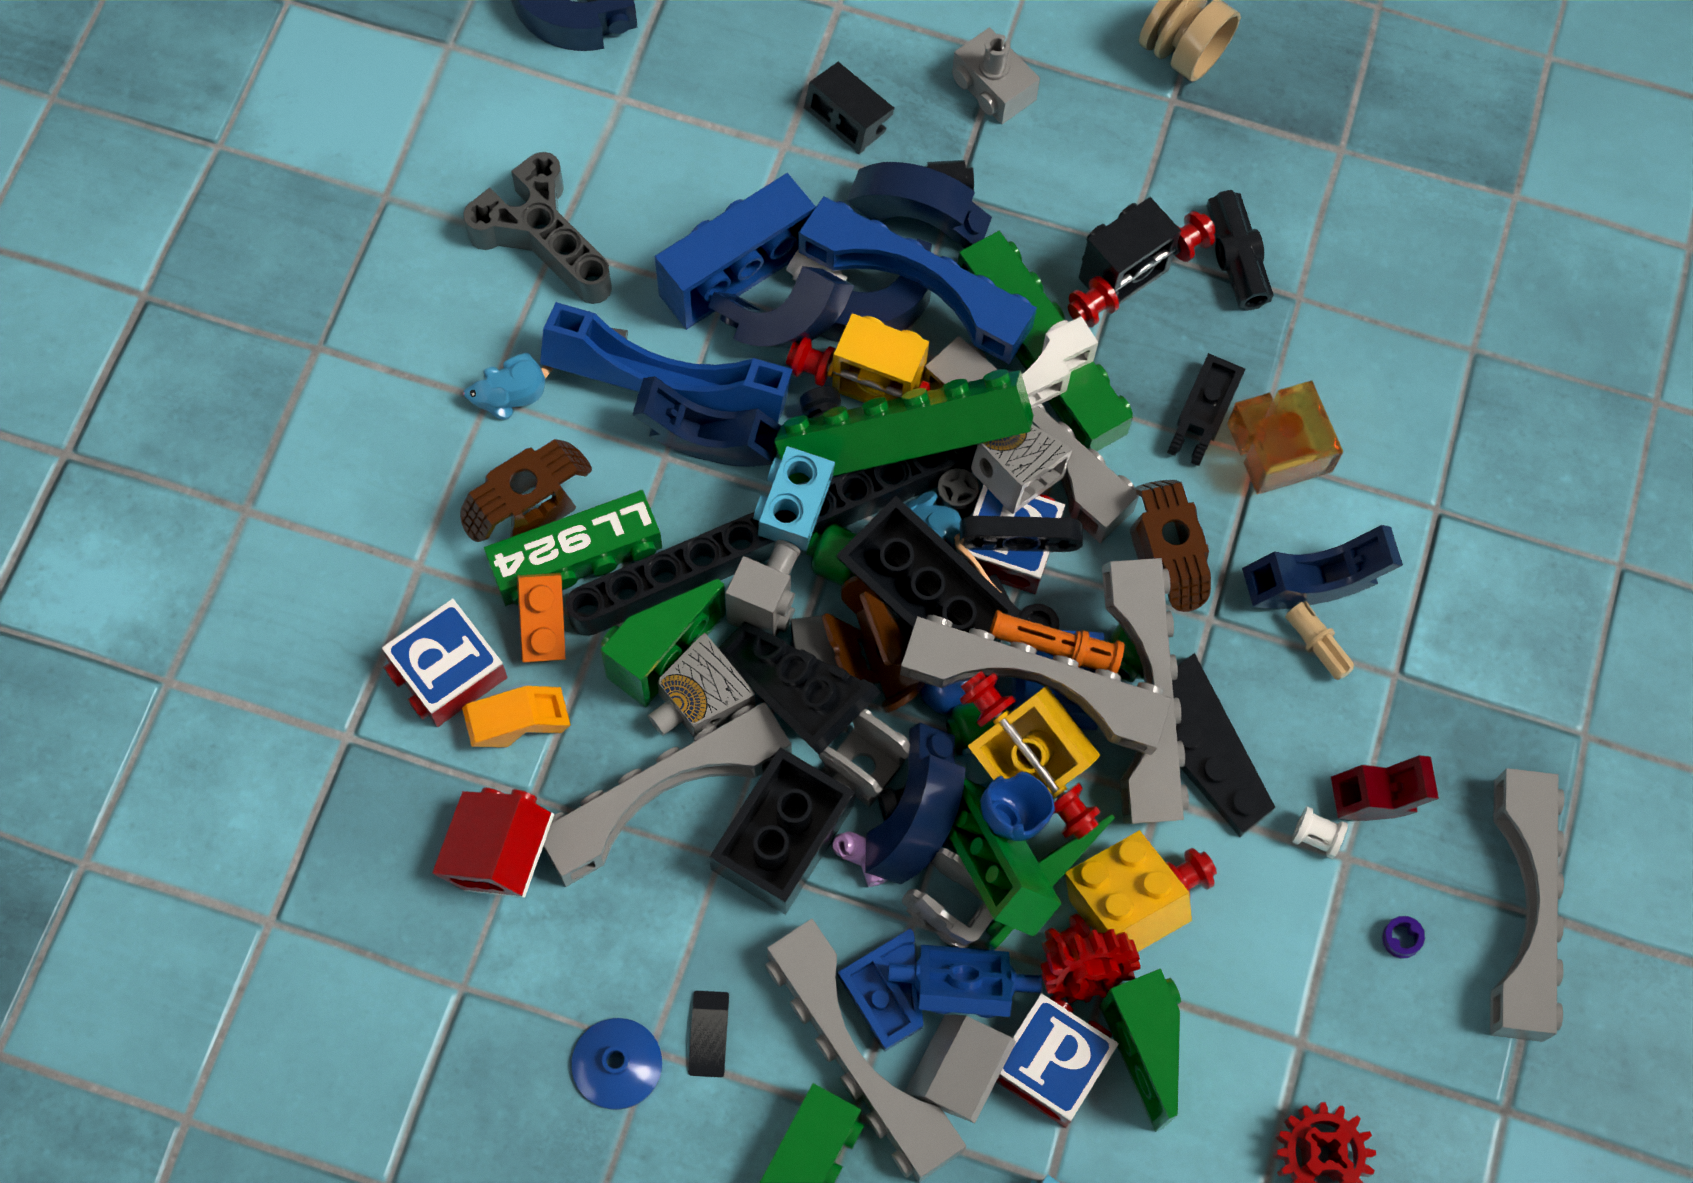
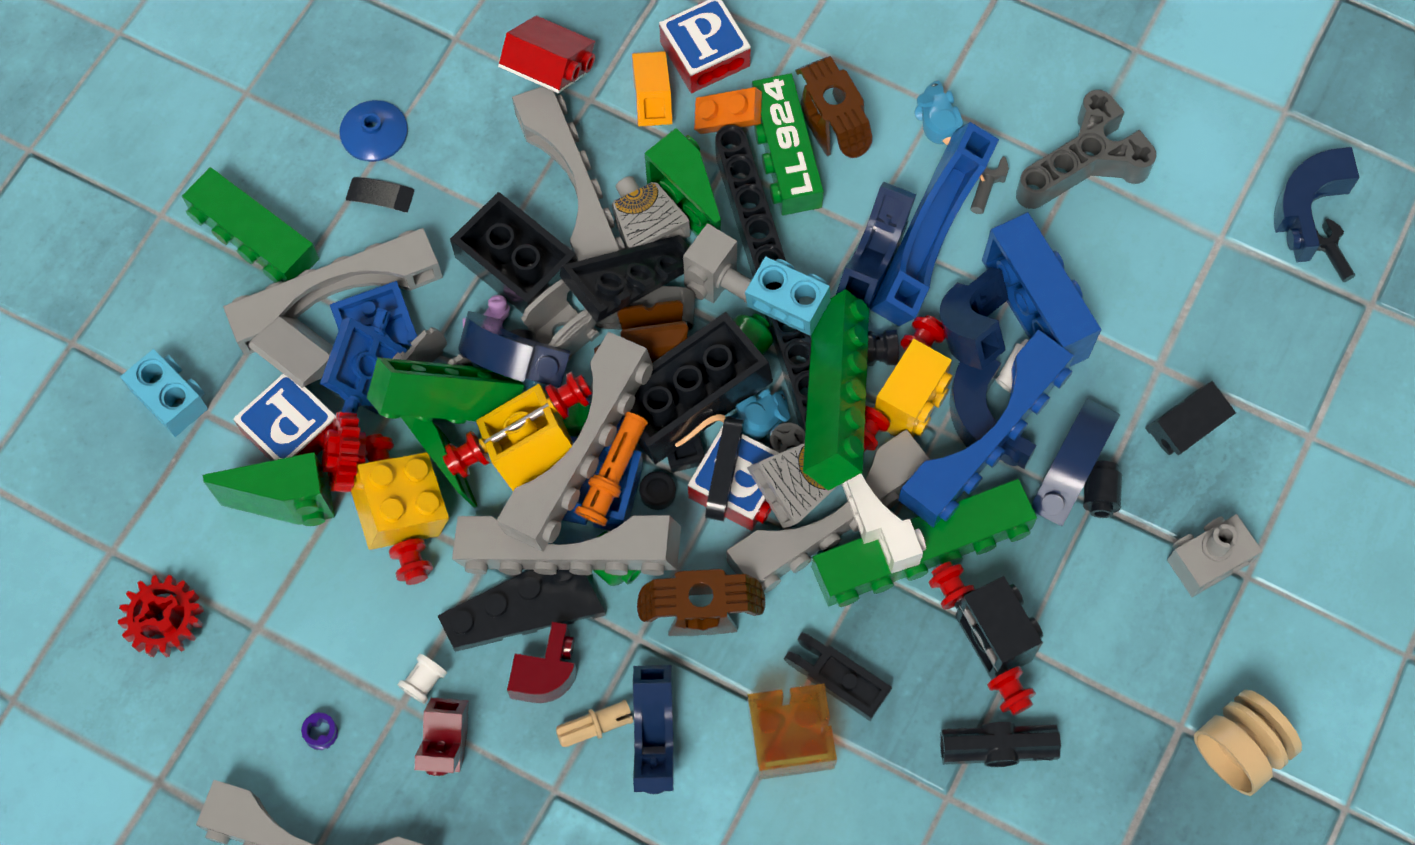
camera: 105 degrees right, 0 degrees up
(1017, 806) = (471, 400): blue hair -> none
(1285, 697) = (545, 678): none -> dark red brick

